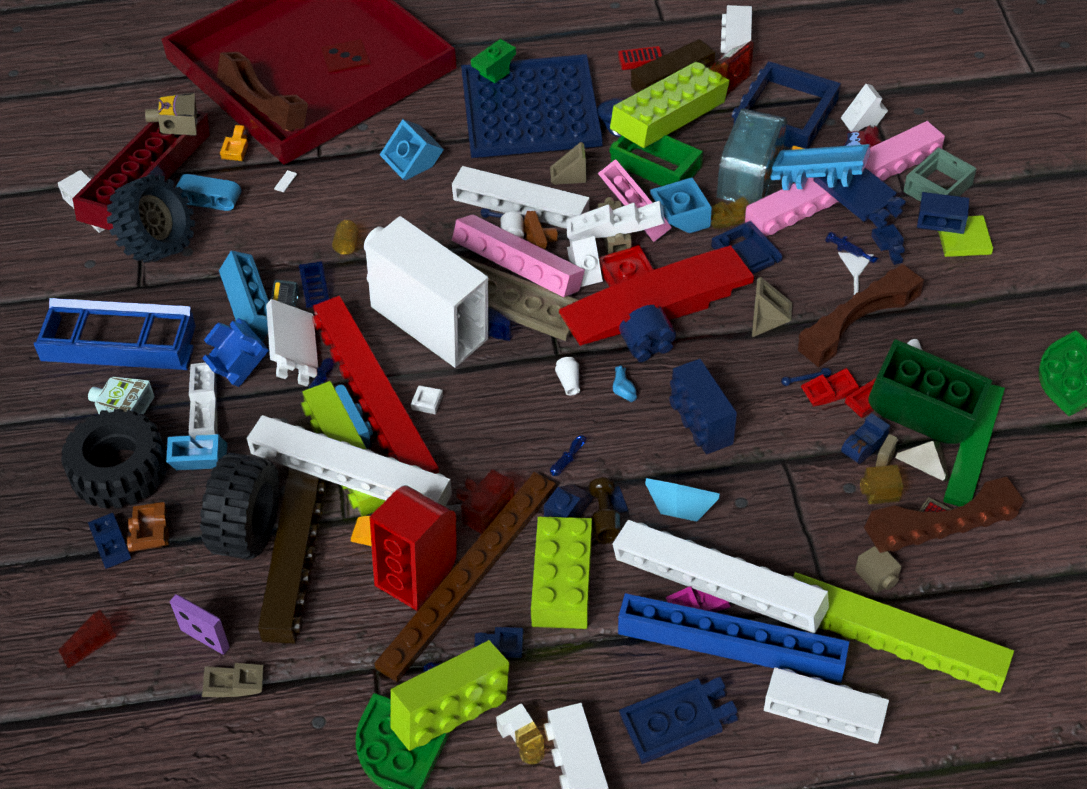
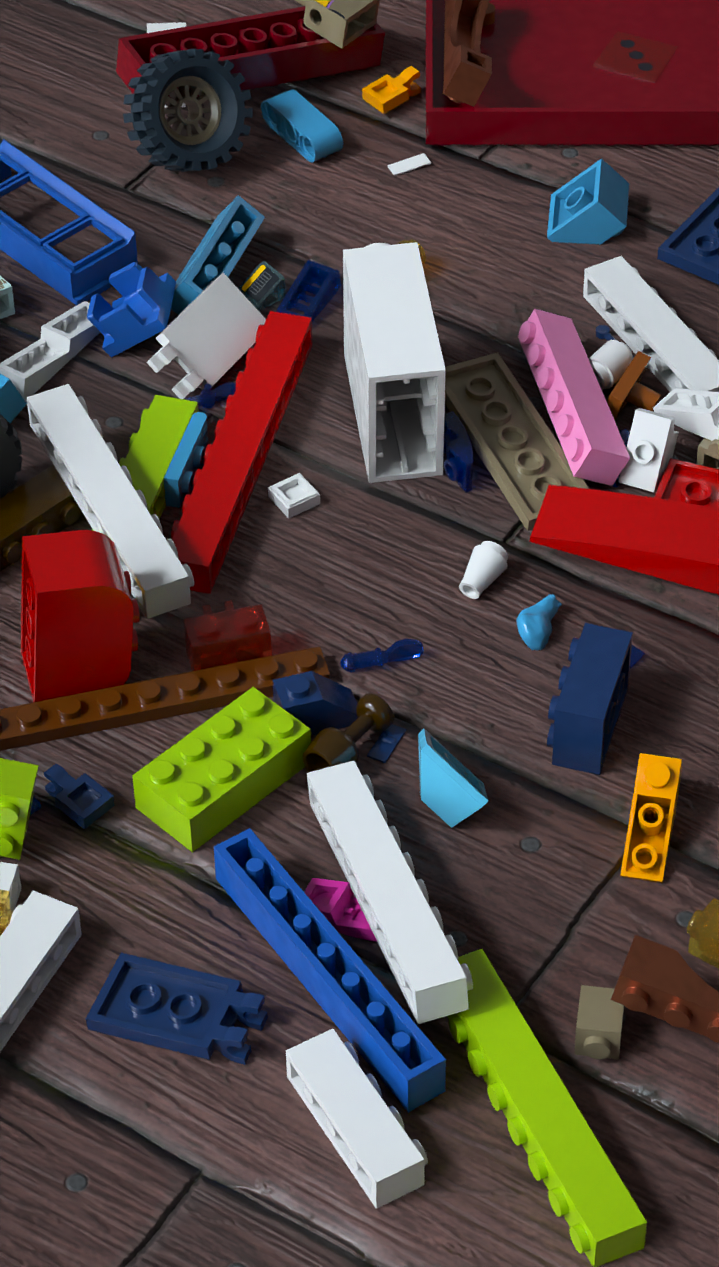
camera: 40 degrees right, 5 degrees down
(647, 332) = (626, 576): dark blue brick -> none
(787, 447) = (651, 817): none -> light orange slope

